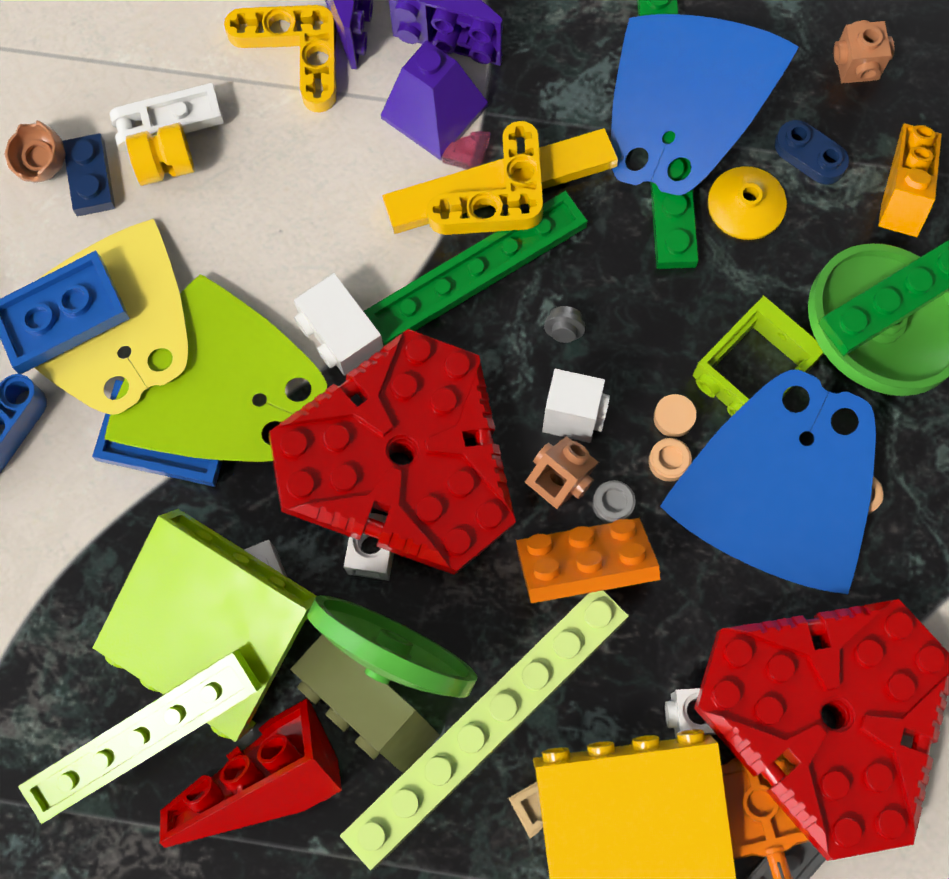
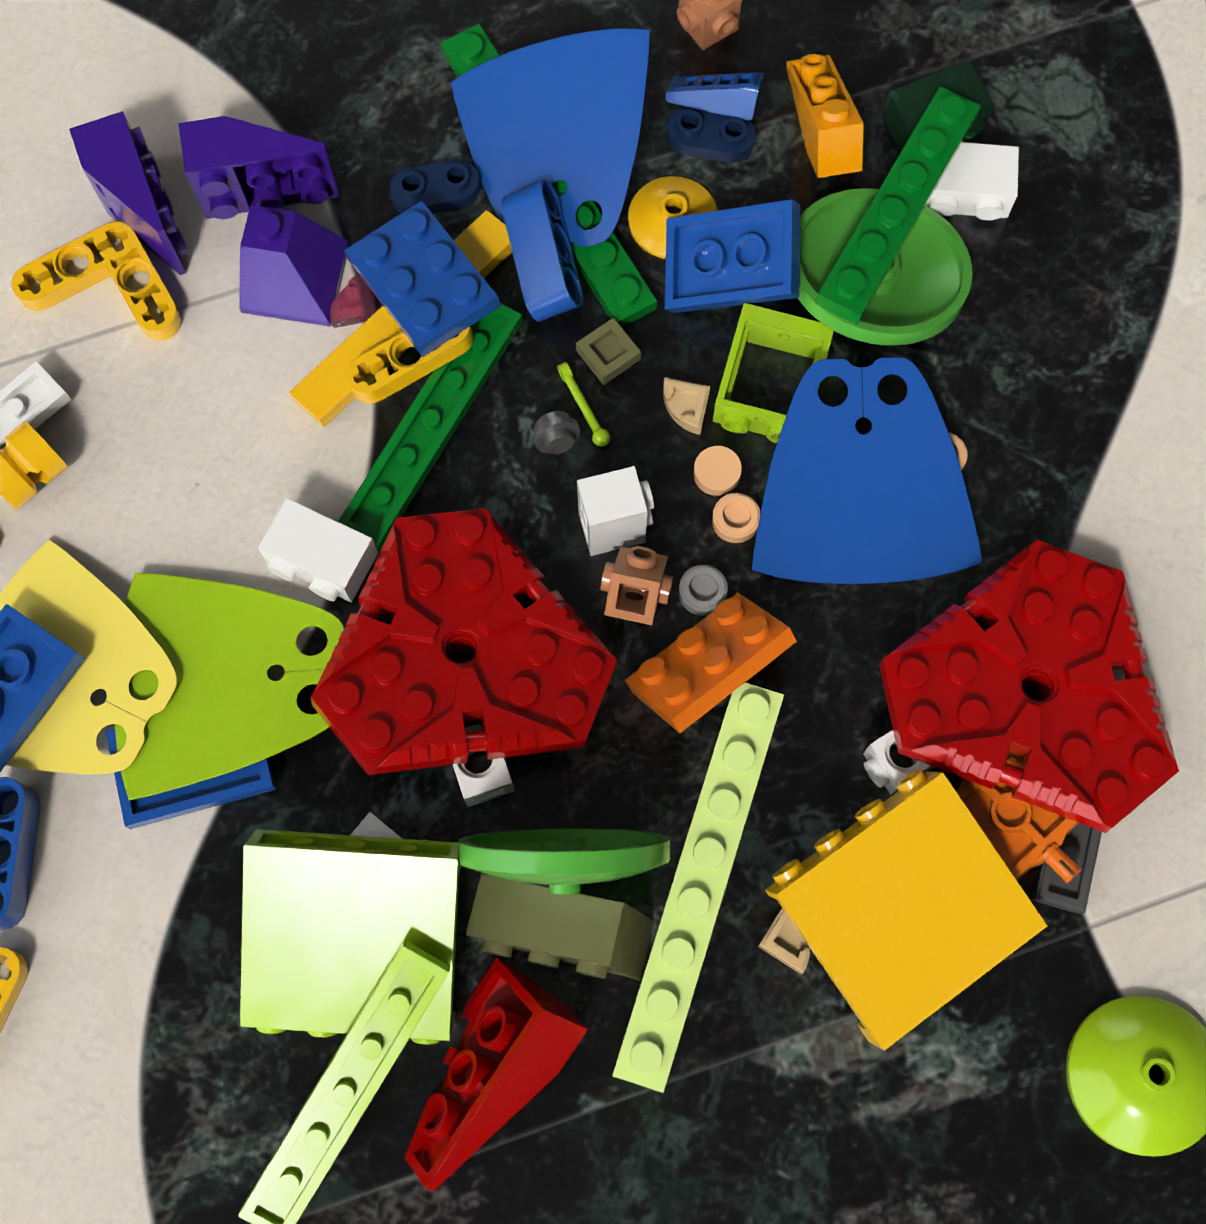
camera: 30 degrees left, 0 degrees up
(524, 157) = (422, 278): none -> blue plate
(573, 95) = (434, 186): none -> dark blue plate
(598, 344) = (600, 436): none -> lime hinge
(628, 179) = (542, 250): none -> blue beam
(639, 281) = (608, 351): none -> olive plate
(679, 351) = (686, 403): none -> tan tile
(774, 255) = (733, 257): none -> blue plate
(836, 124) = (718, 93): none -> slope

